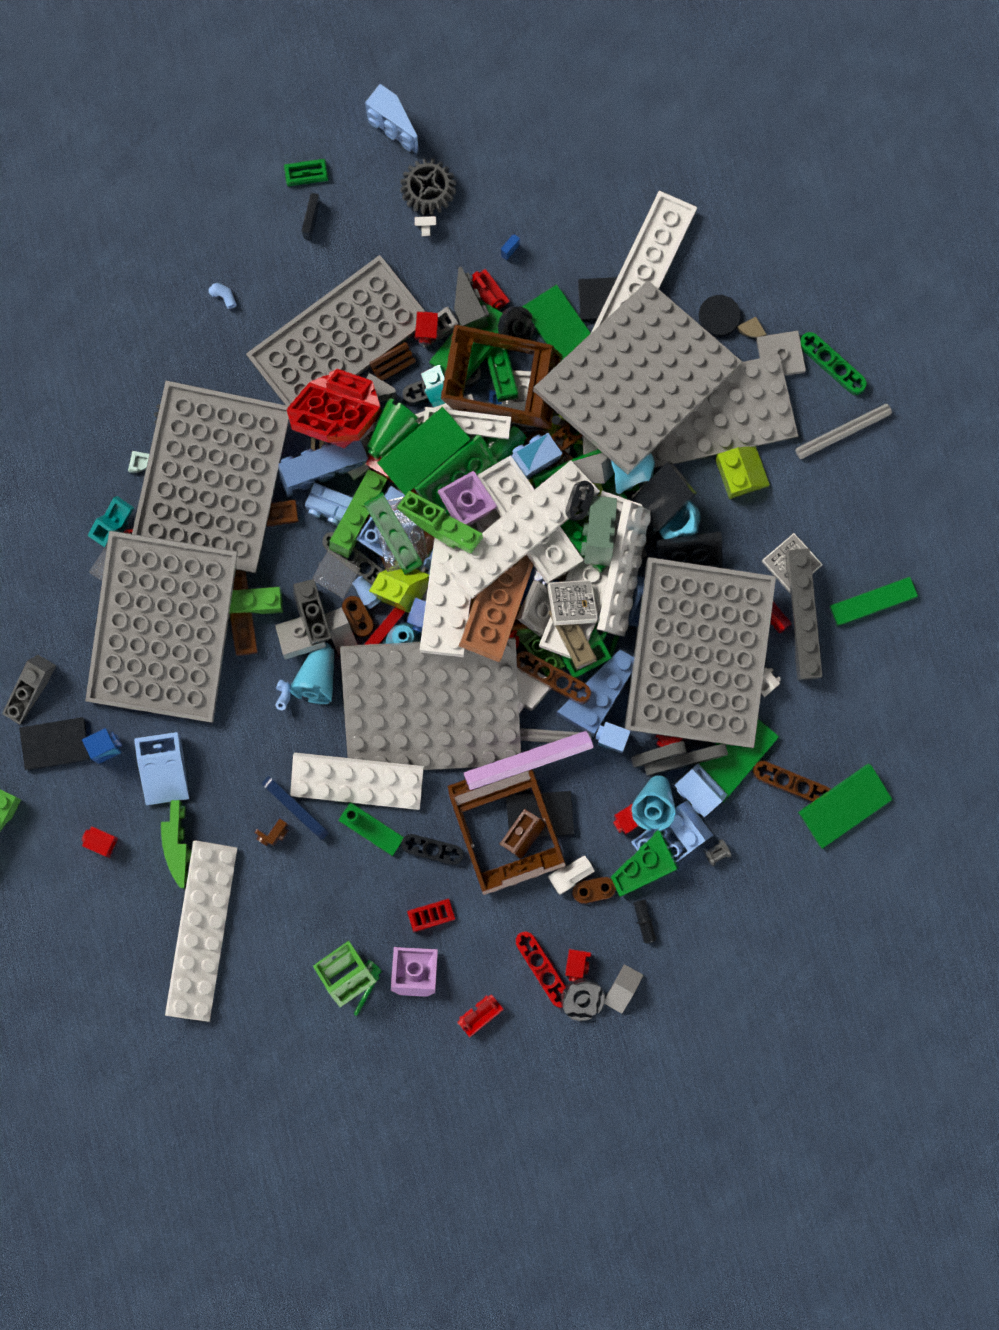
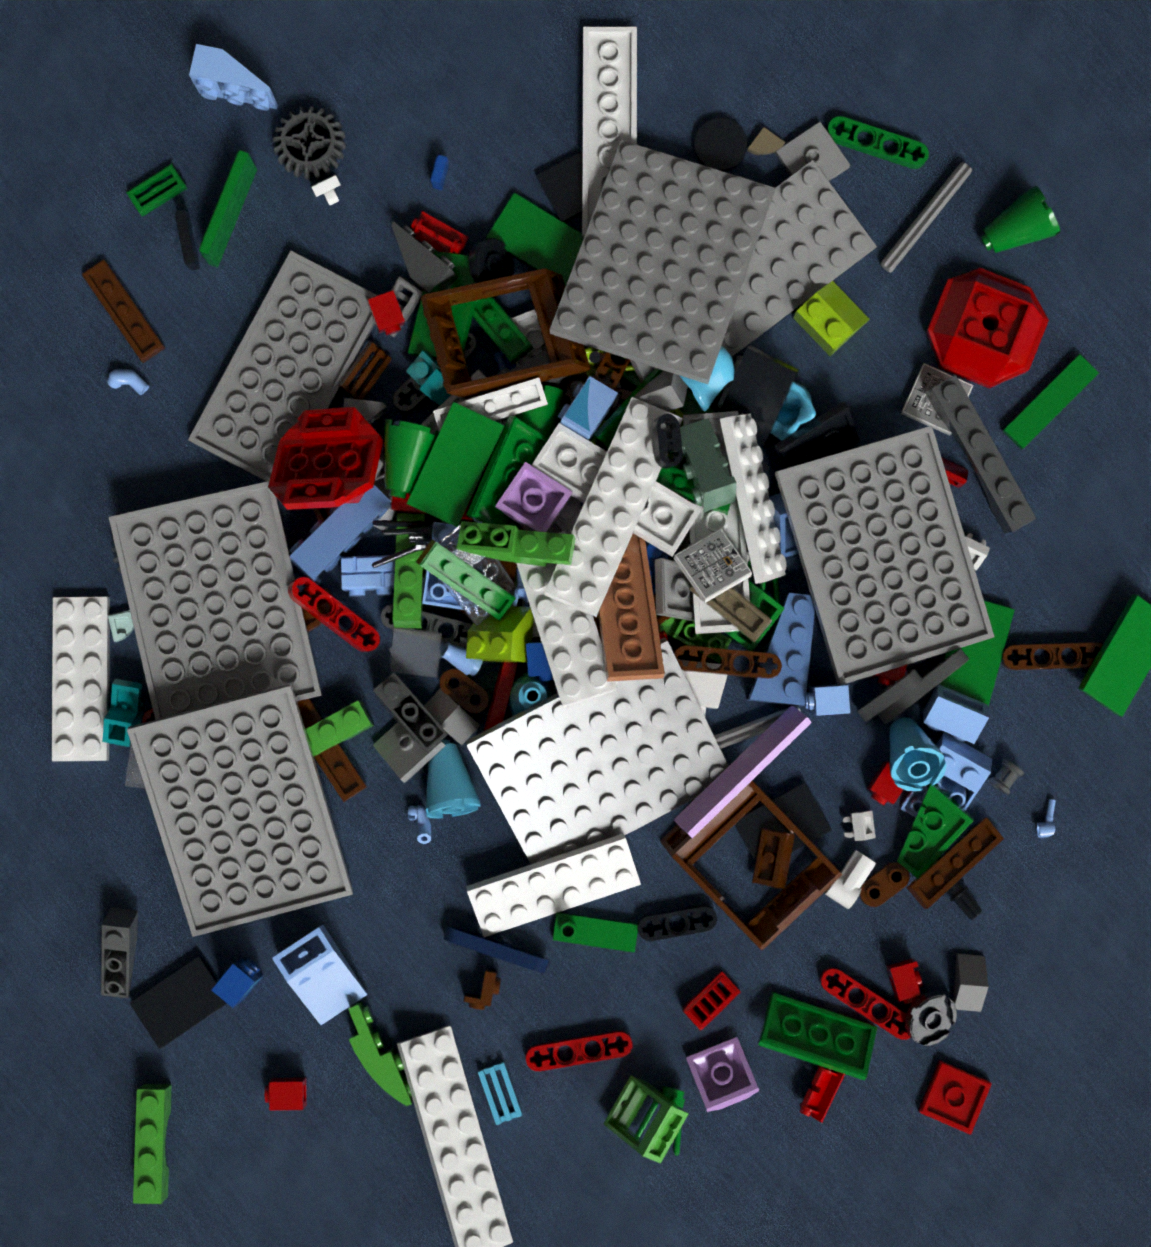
camera: 25 degrees left, 5 degrees up
(92, 486) = (80, 678): none -> white plate
(243, 245) = (123, 311): none -> reddish brown tile
(251, 893) = (507, 1114): none -> medium azure tile
(287, 522) = (336, 610): none -> red beam
(319, 910) = (578, 1047): none -> red beam
(349, 206) = (228, 208): none -> green tile
(375, 486) = (418, 533): none -> black plant
(495, 974) = (817, 1036): none -> green tile
(574, 1066) = (955, 1097): none -> red tile
(597, 840) = (862, 826): none -> white tile
(651, 895) = (955, 863): none -> reddish brown plate
(729, 904) = (1047, 828): none -> light blue hand
(846, 548) = (970, 349): none -> red piece
(908, 465) = (1021, 223): none -> green cone

